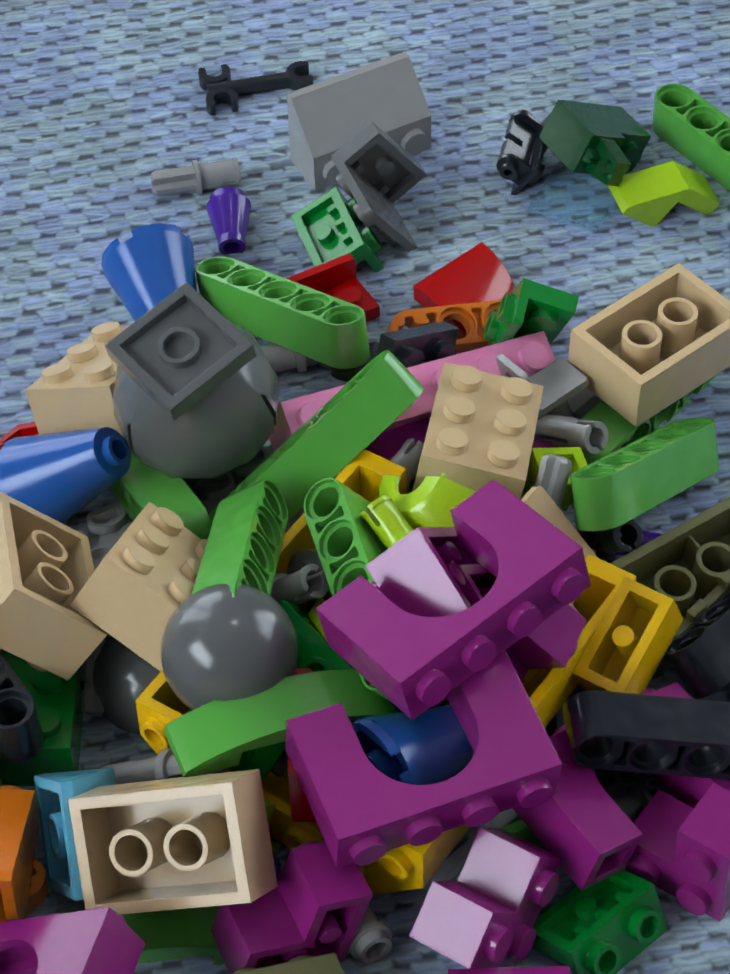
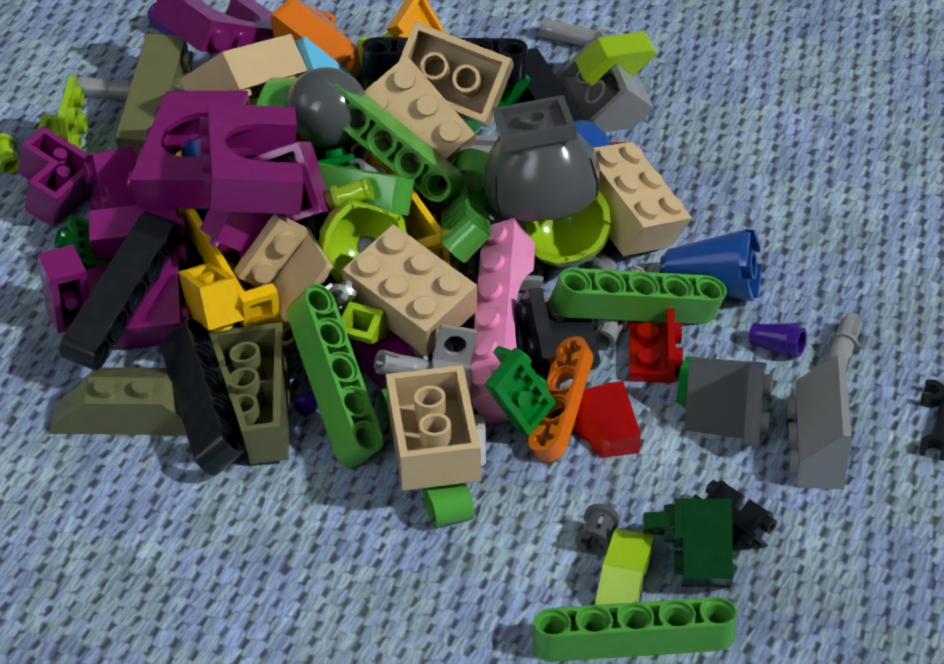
camera: 120 degrees right, 5 degrees down
(630, 233) = (594, 529): none -> dark grey bush

